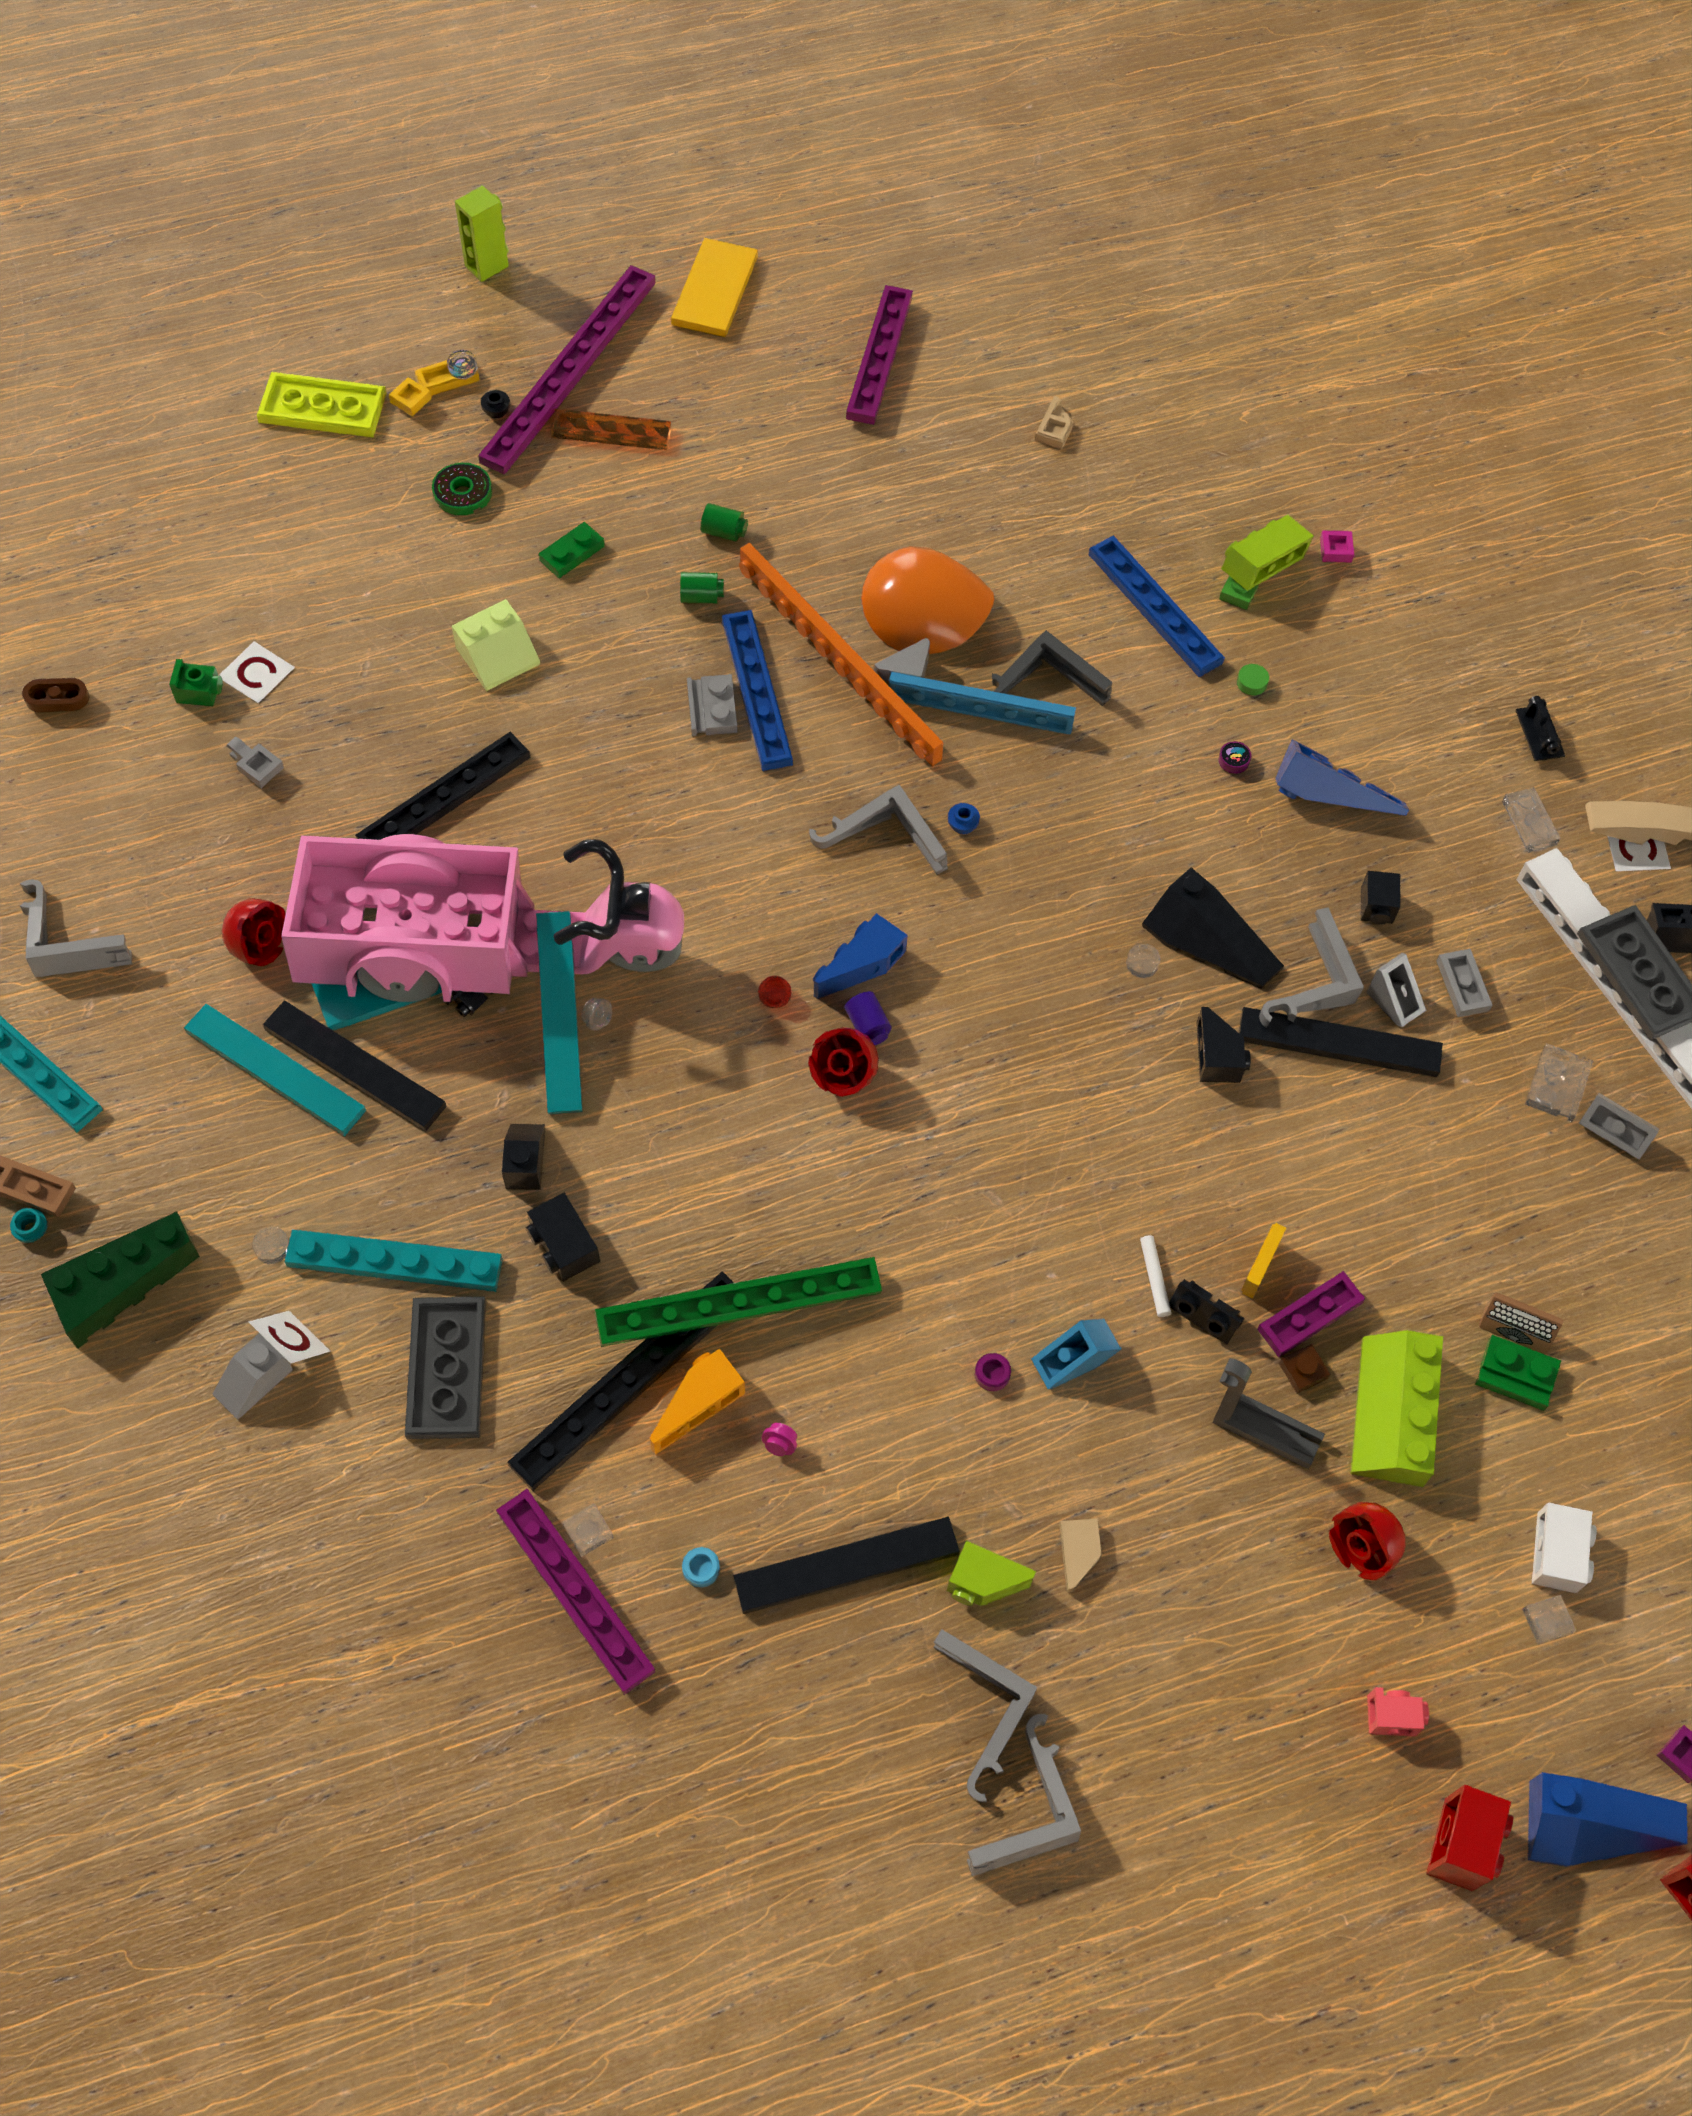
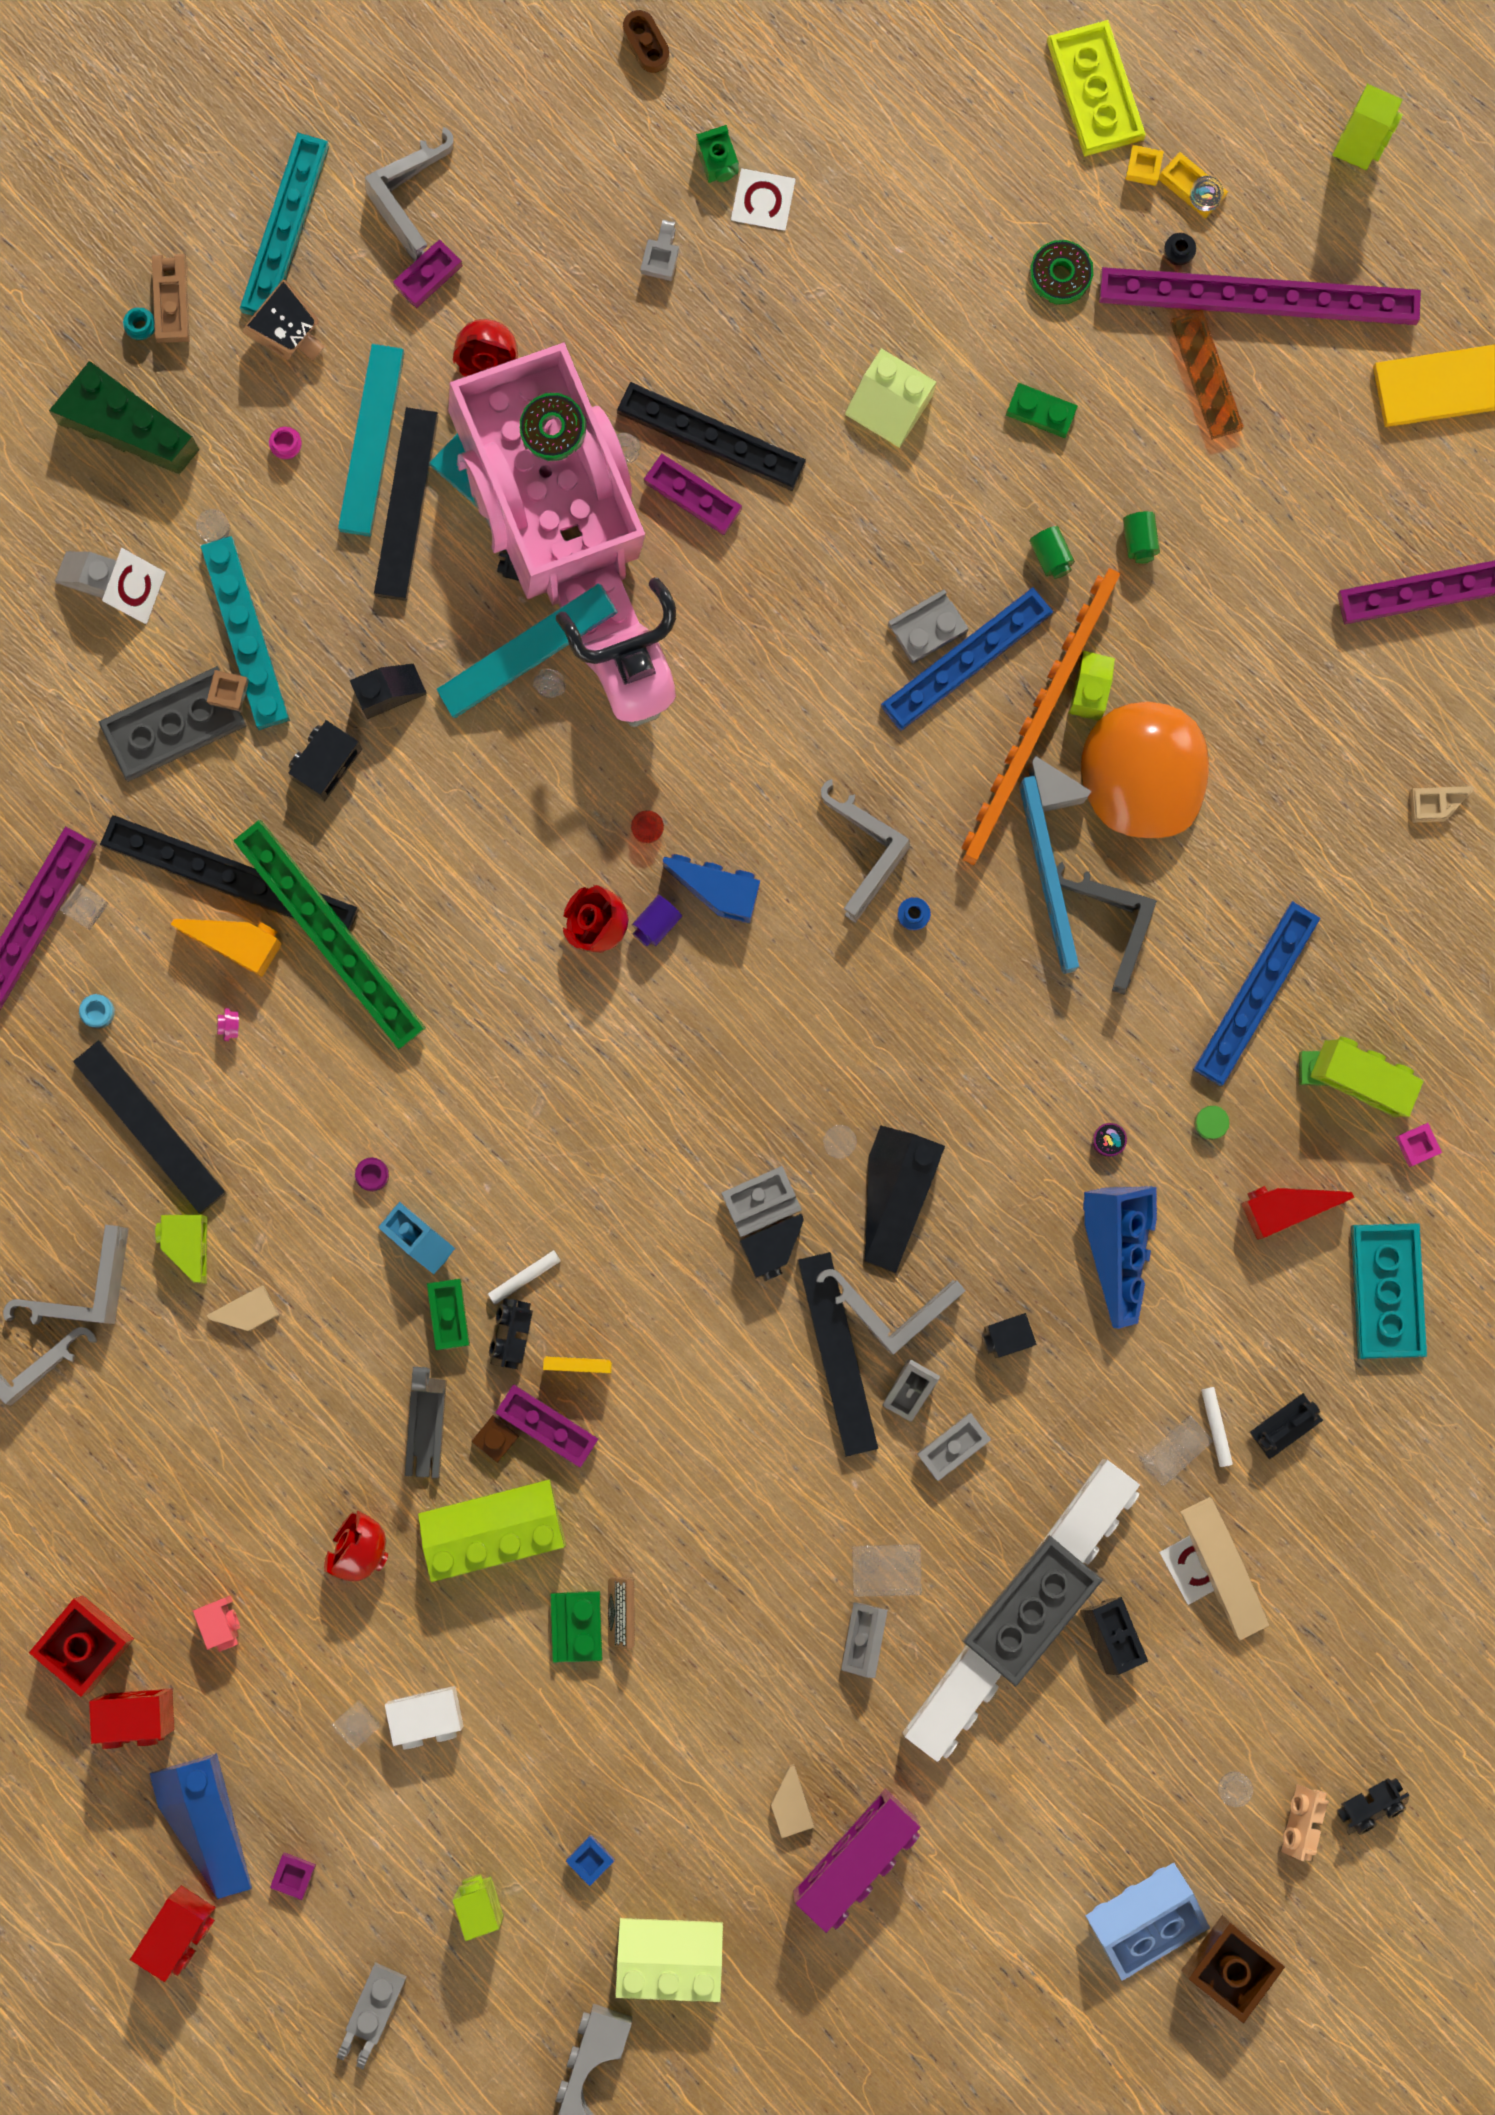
camera: 60 degrees right, 20 degrees up
(117, 1089) = (285, 324): none -> torso
(148, 953) = (427, 273): none -> magenta plate
(230, 1144) = (285, 442): none -> dark pink plate
(370, 858) = (546, 408): none -> tile
(446, 1291) = (227, 690): none -> medium nougat plate
(493, 824) = (692, 494): none -> magenta plate
(837, 606) = (1092, 686): none -> lime slope
(1164, 1357) = (448, 1314): none -> green plate
(1172, 1043) = (761, 1201): none -> light grey plate
(1352, 659) = (1284, 1207): none -> red slope
(1372, 1863) = (81, 1645): none -> red brick
(1451, 617) = (1388, 1291): none -> teal tile
(1521, 782) = (1217, 1427): none -> white piece

